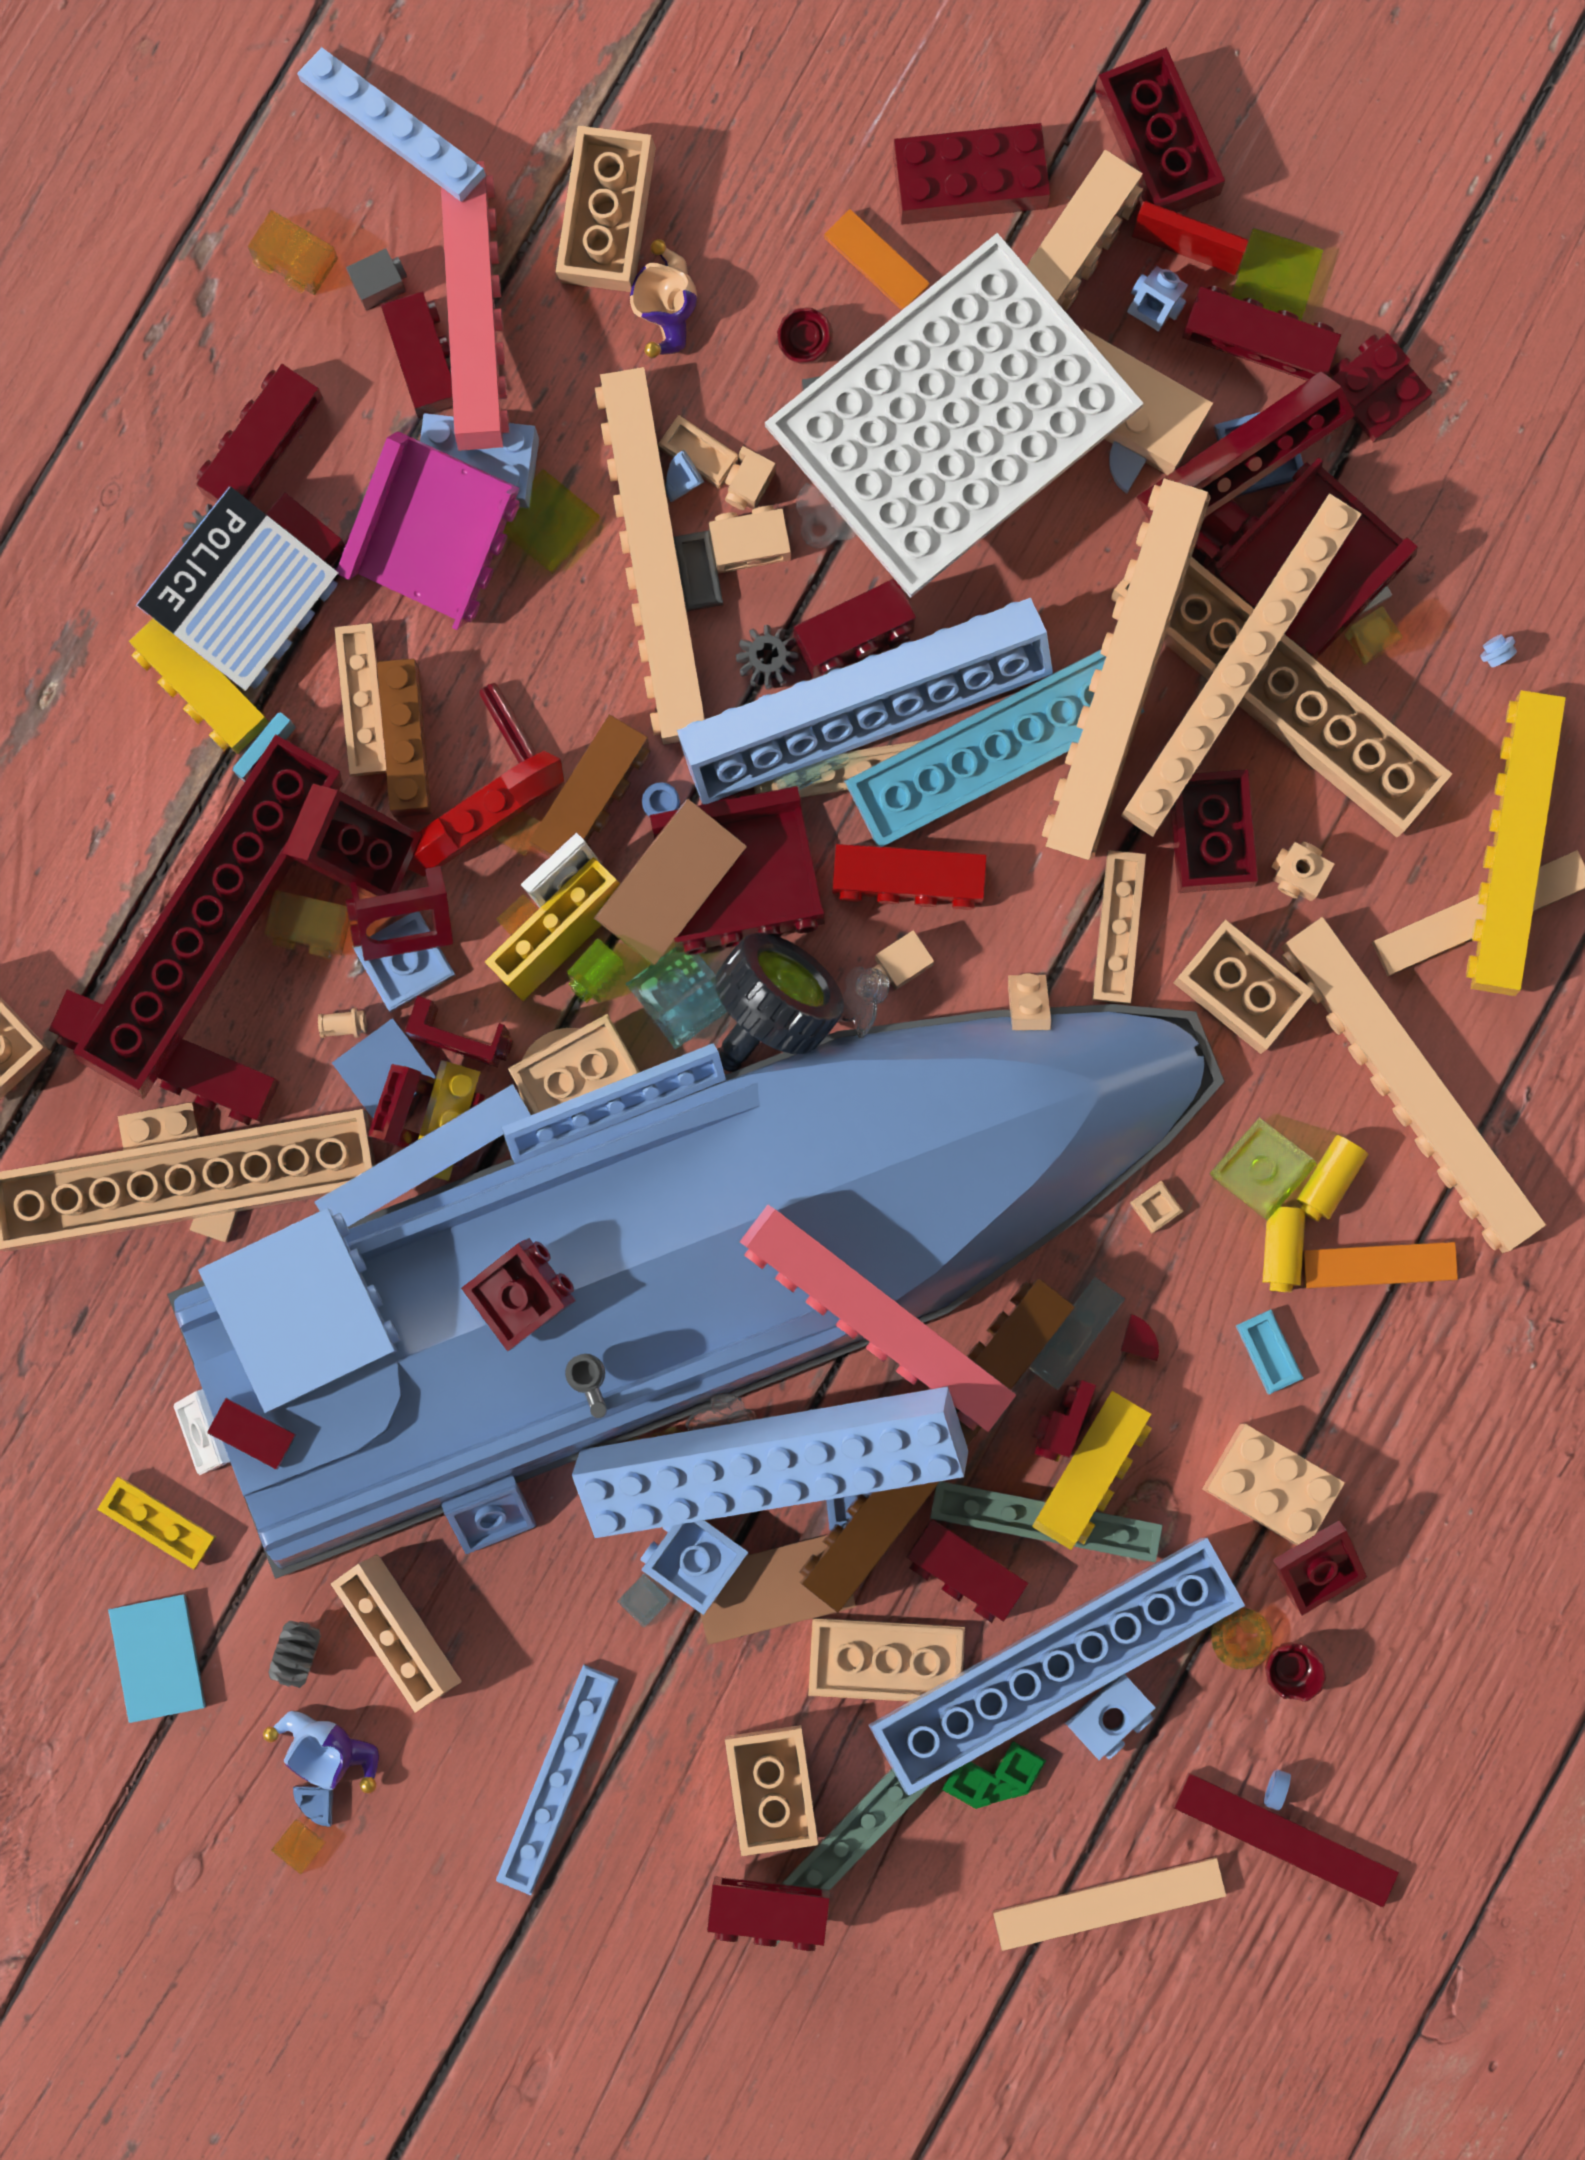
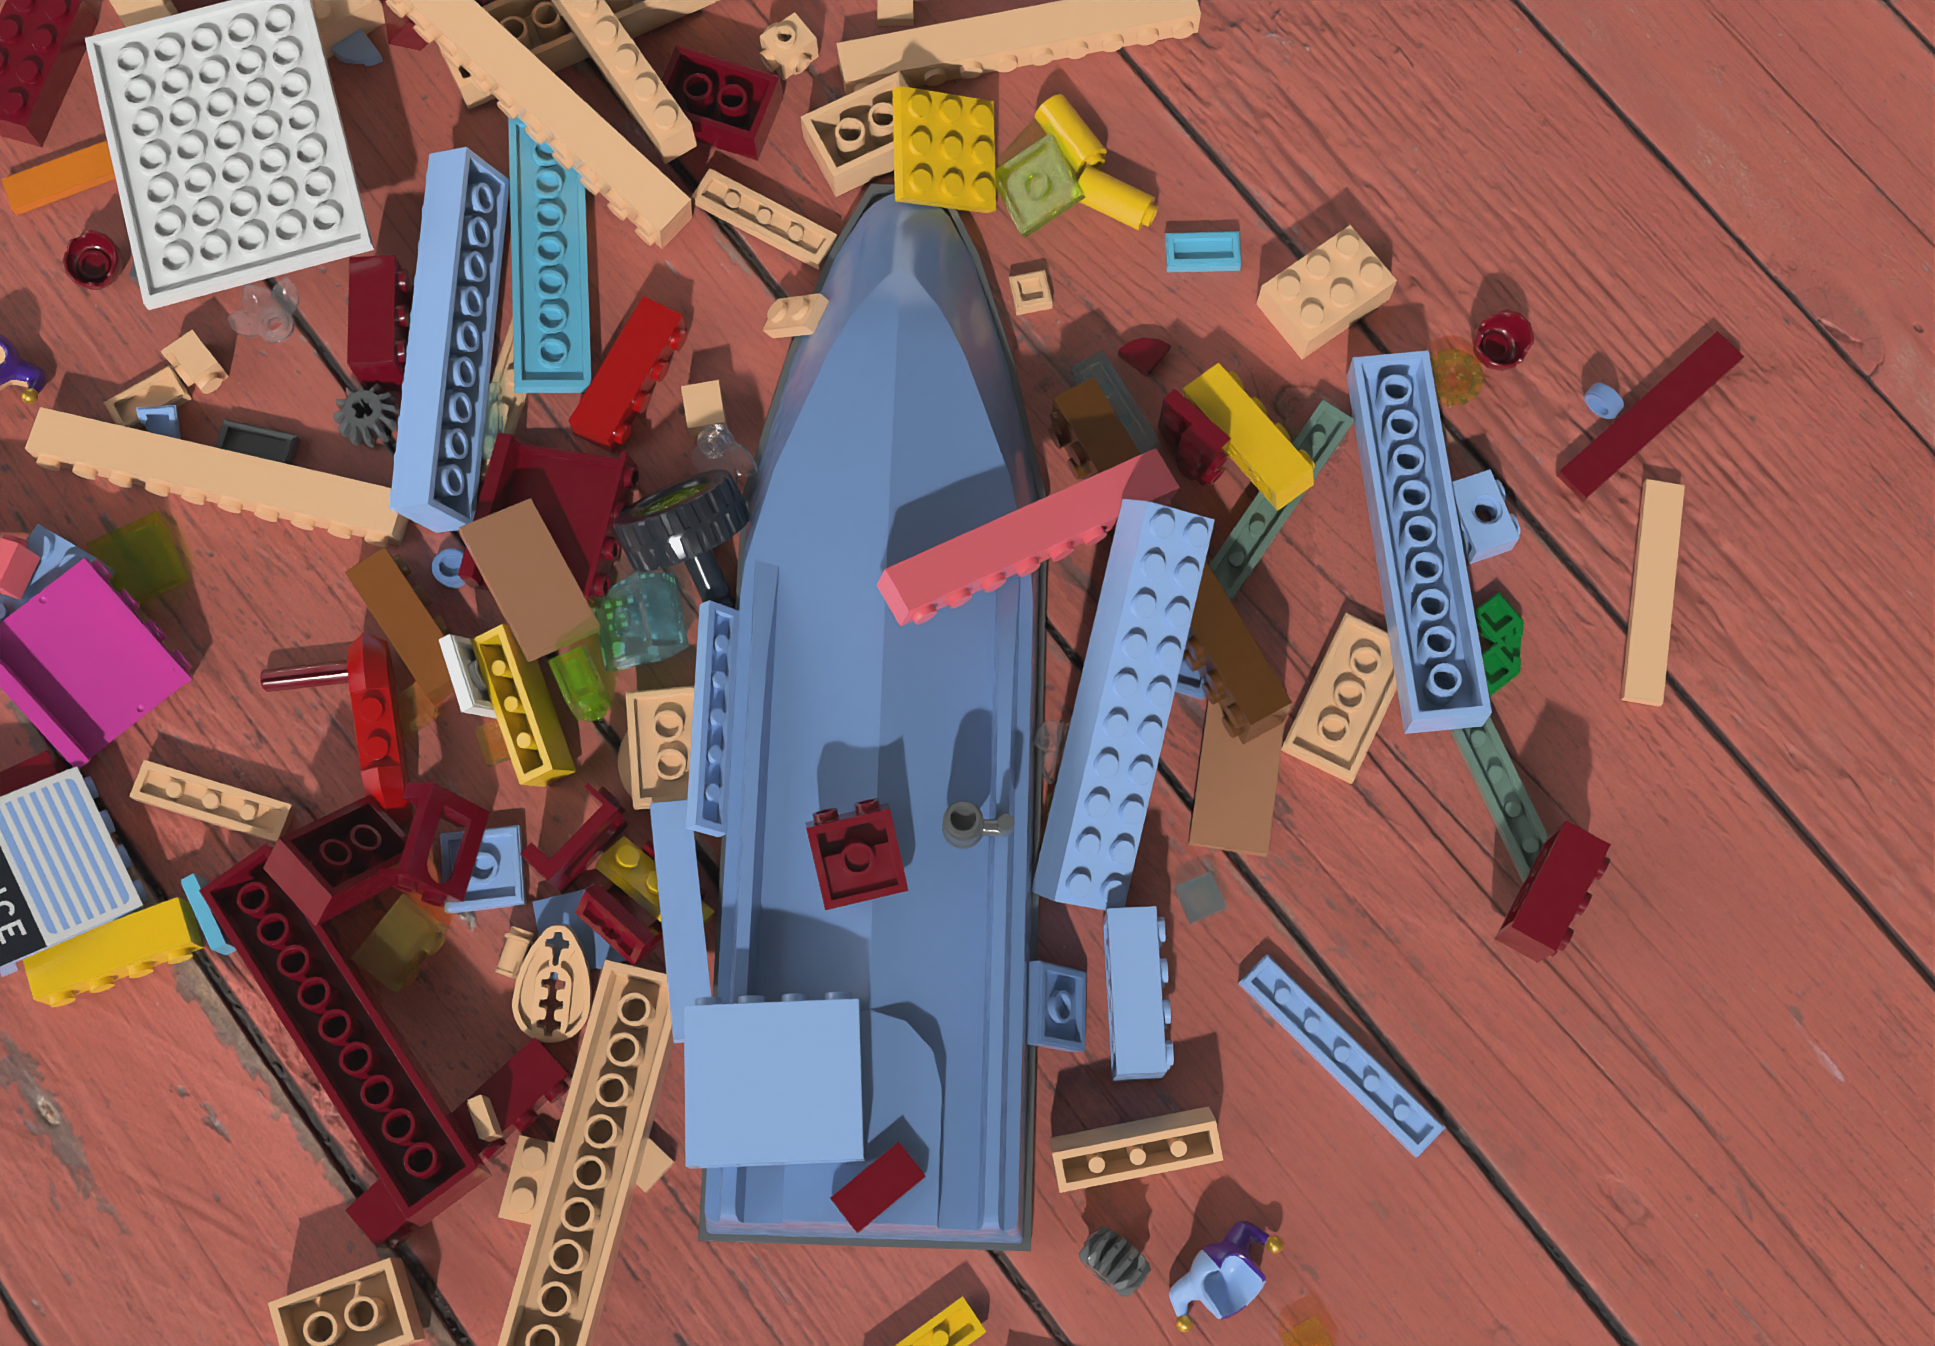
camera: 65 degrees left, 10 degrees down
(186, 1071) = (484, 1118): none -> light nougat tile
(195, 1419) = (852, 1259): white tile -> none
(315, 1803) = (1271, 1308): medium blue tile -> none
(316, 1055) = (530, 989): none -> light nougat piece
(404, 738) = (267, 773): dark orange brick -> none
(526, 1578) = (1135, 994): none -> light blue brick
(693, 1562) = (1184, 831): light blue plate -> none
(749, 539) = (251, 384): light nougat brick -> none
(771, 1790) = (1433, 848): light nougat brick -> none
(965, 1572) = (1294, 588): dark red brick -> none
(1251, 1069) = (944, 150): none -> yellow plate
(1319, 1568) = (1419, 278): dark red plate -> none
(1380, 1265) = (1166, 129): orange tile -> none

